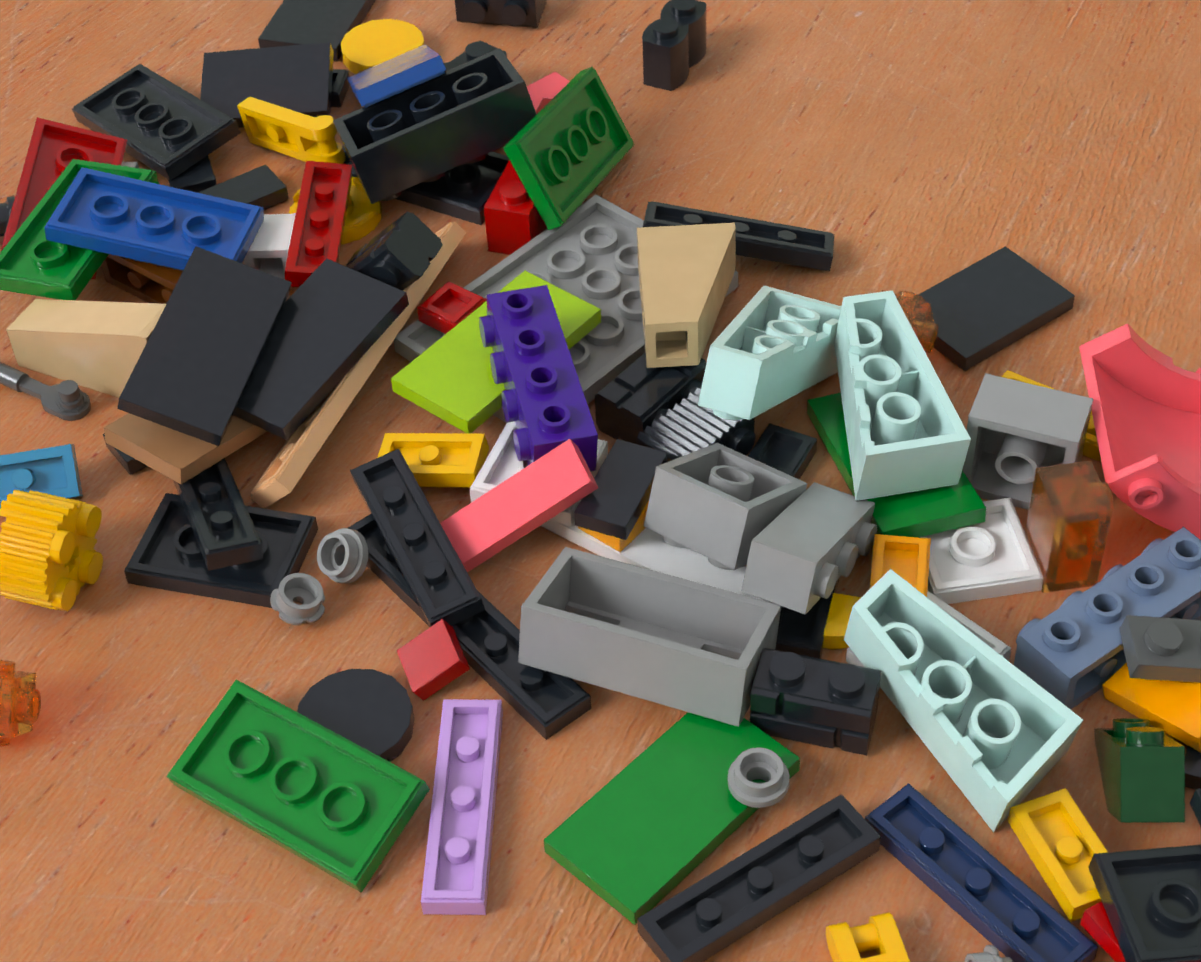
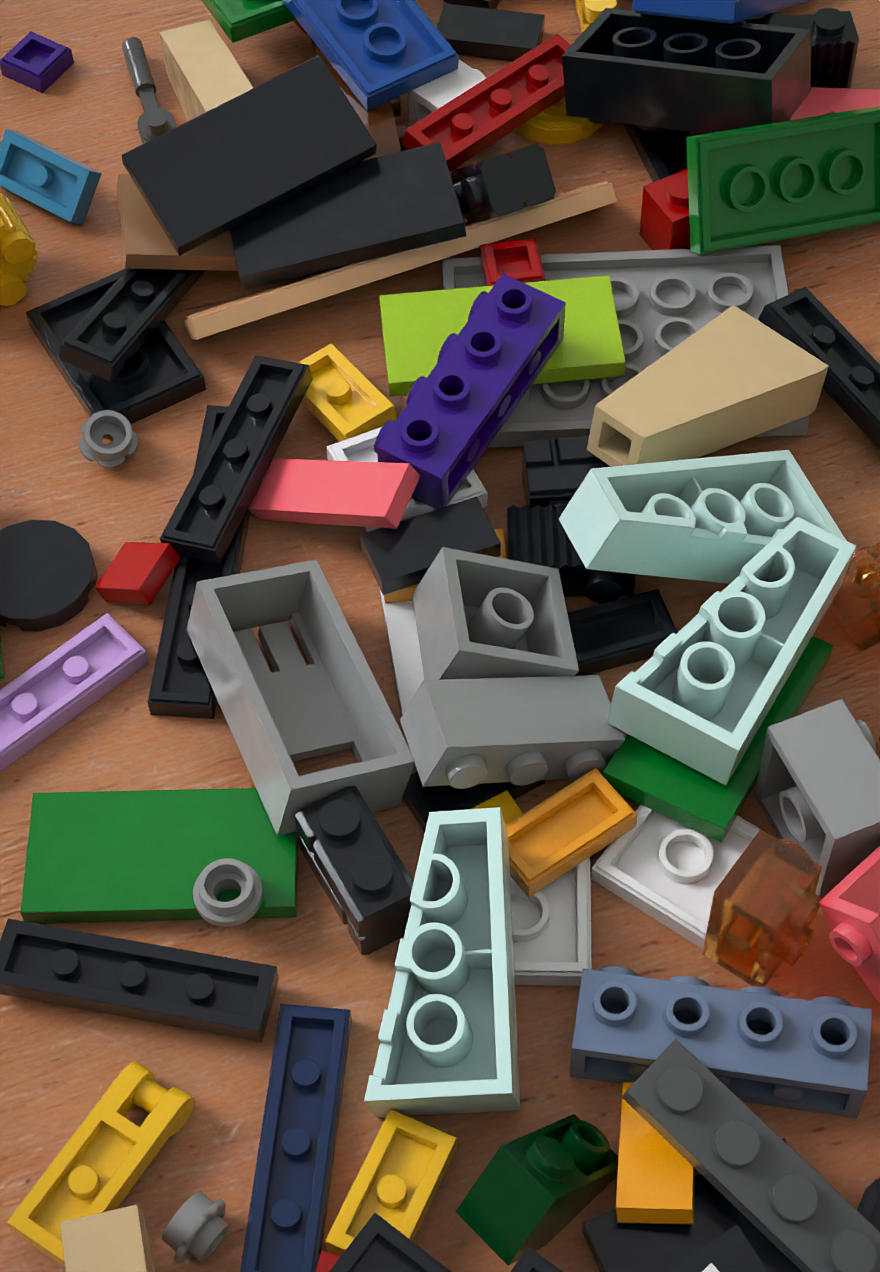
camera: 45 degrees right, 10 degrees up
(343, 555) = (179, 427): light grey plate -> none

